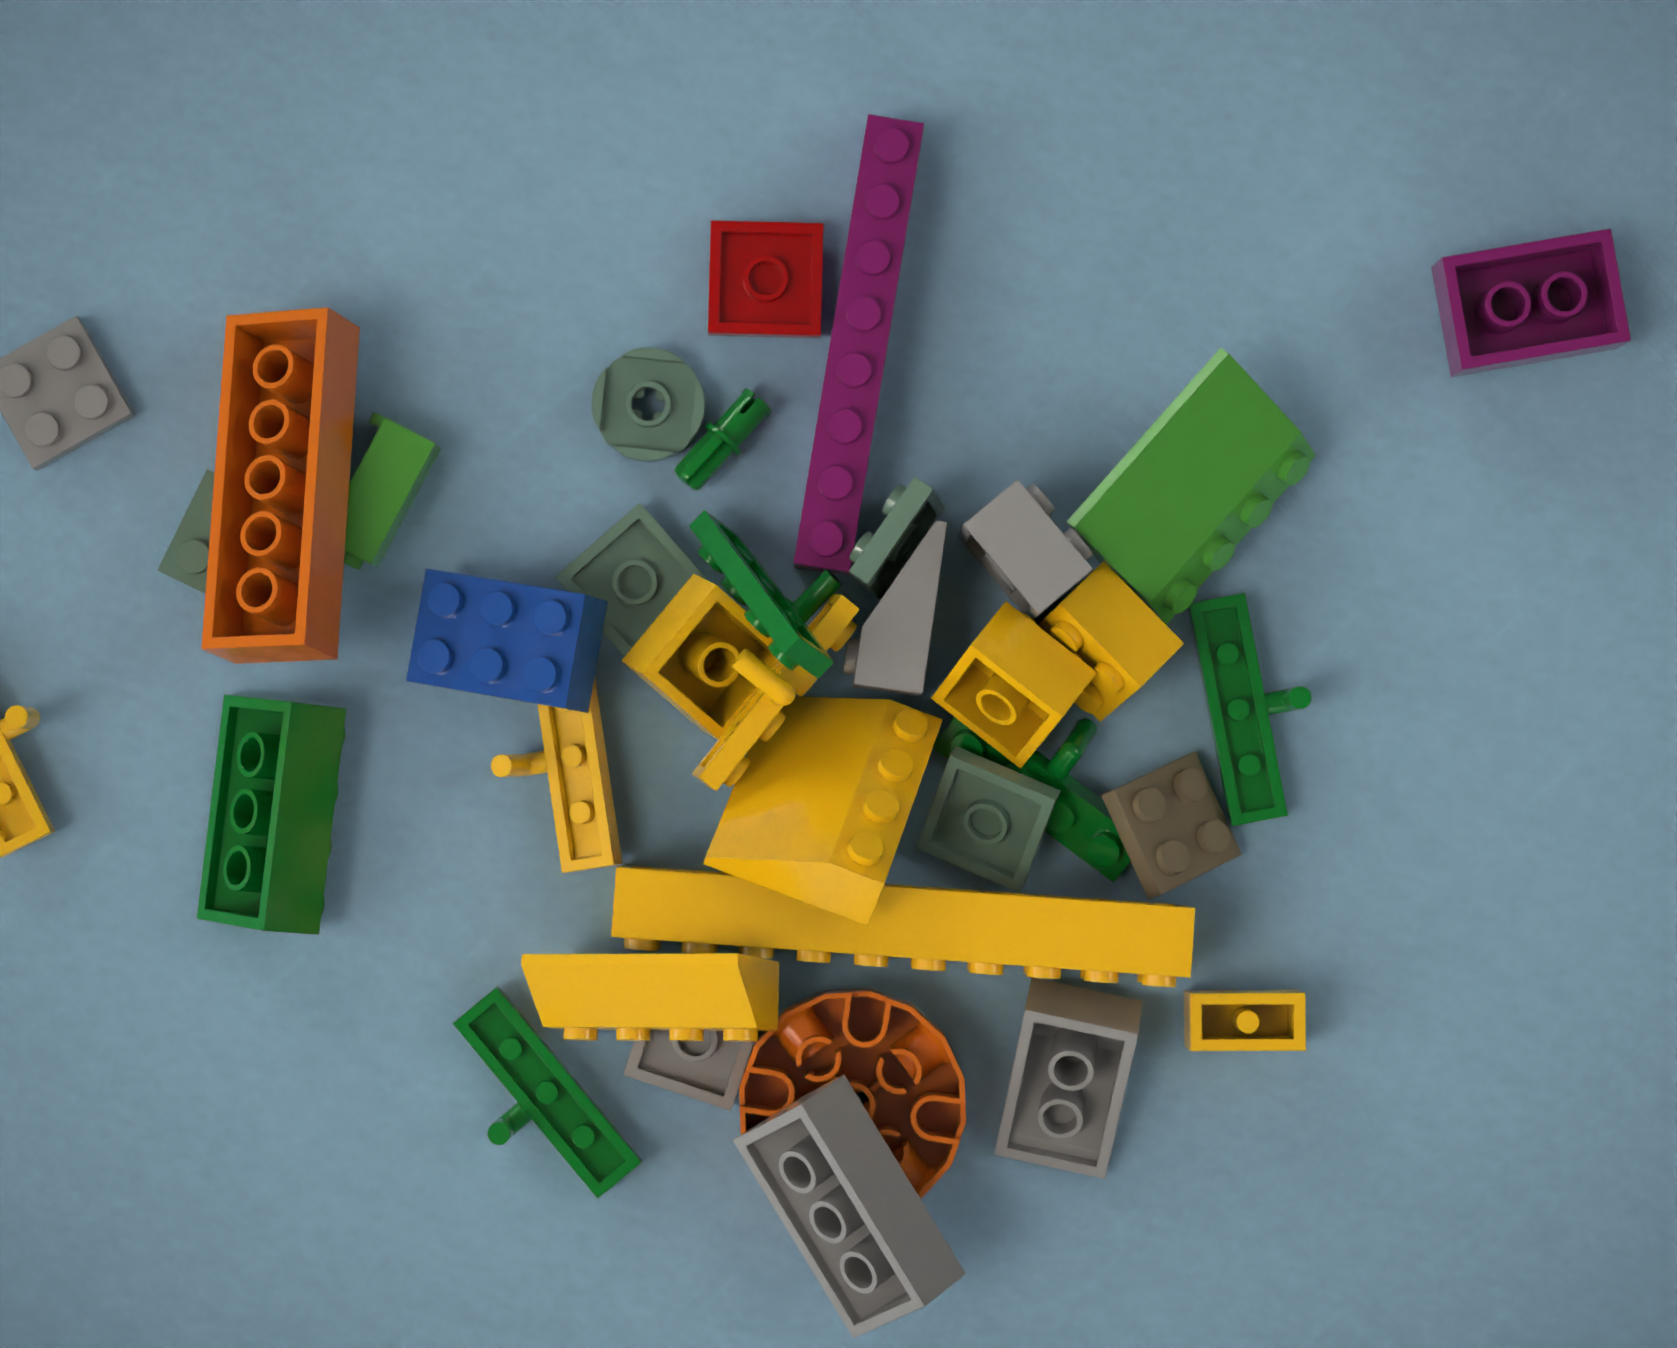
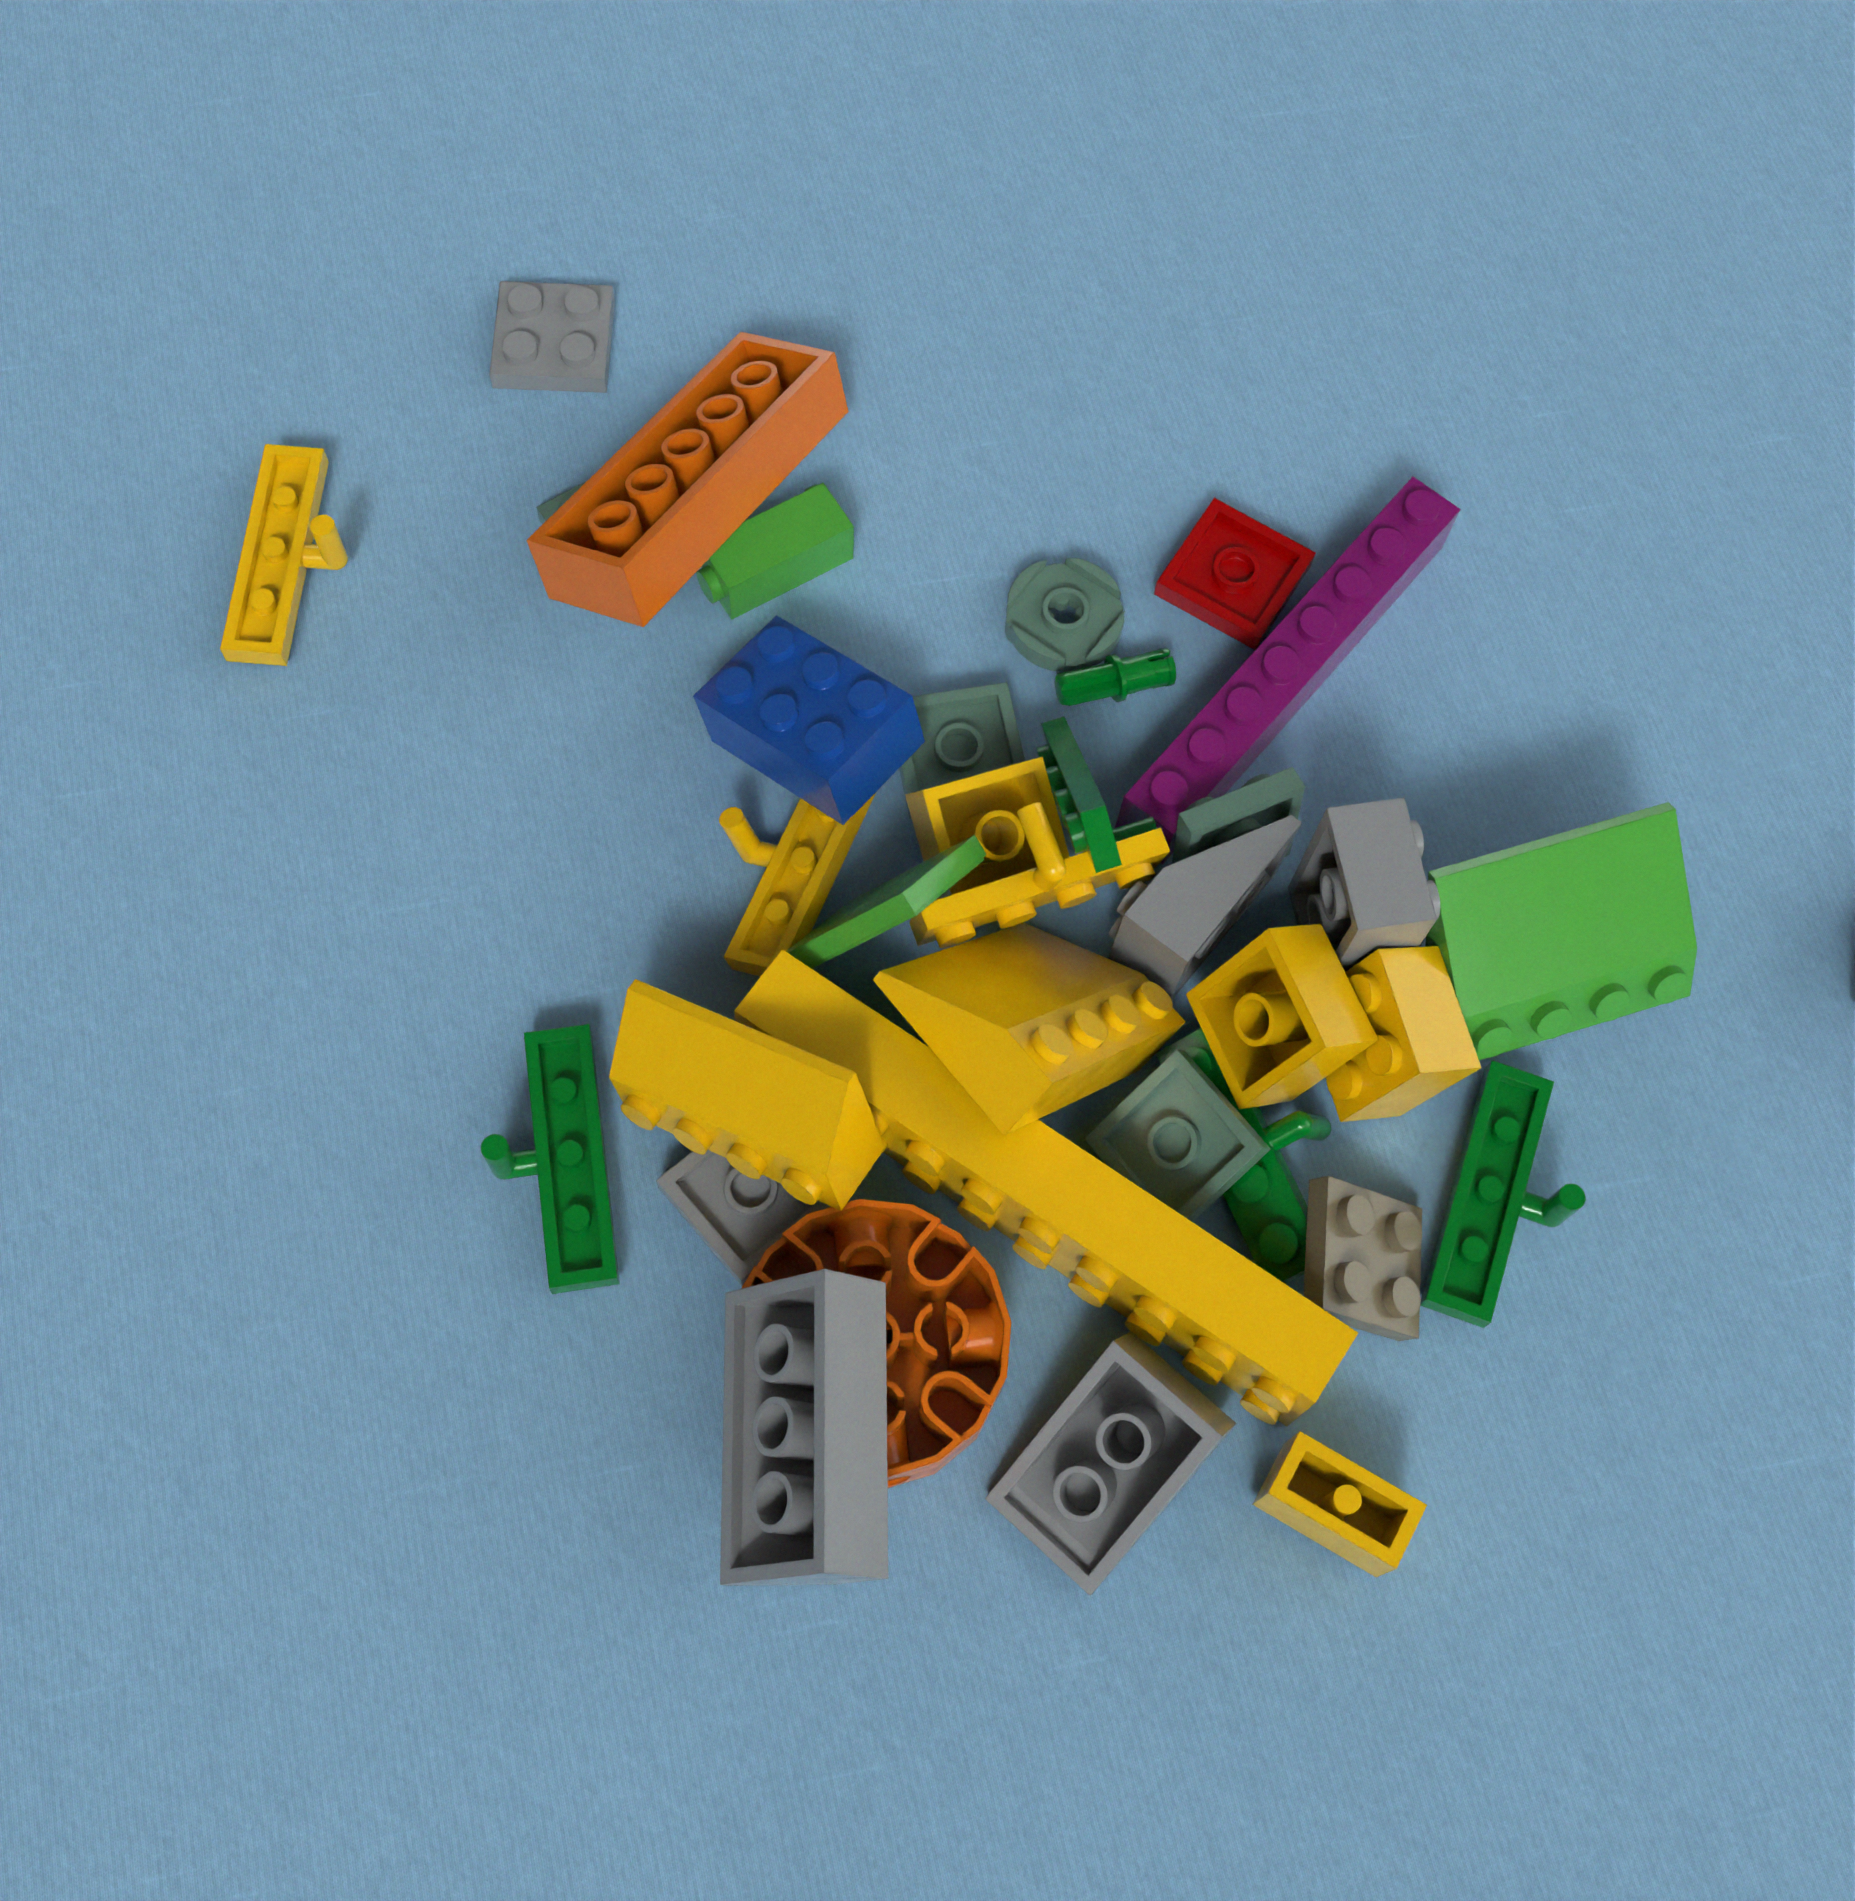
camera: 25 degrees right, 20 degrees down
(271, 814) = (491, 756): green slope -> none
(667, 782) = (888, 904): none -> bright green tile

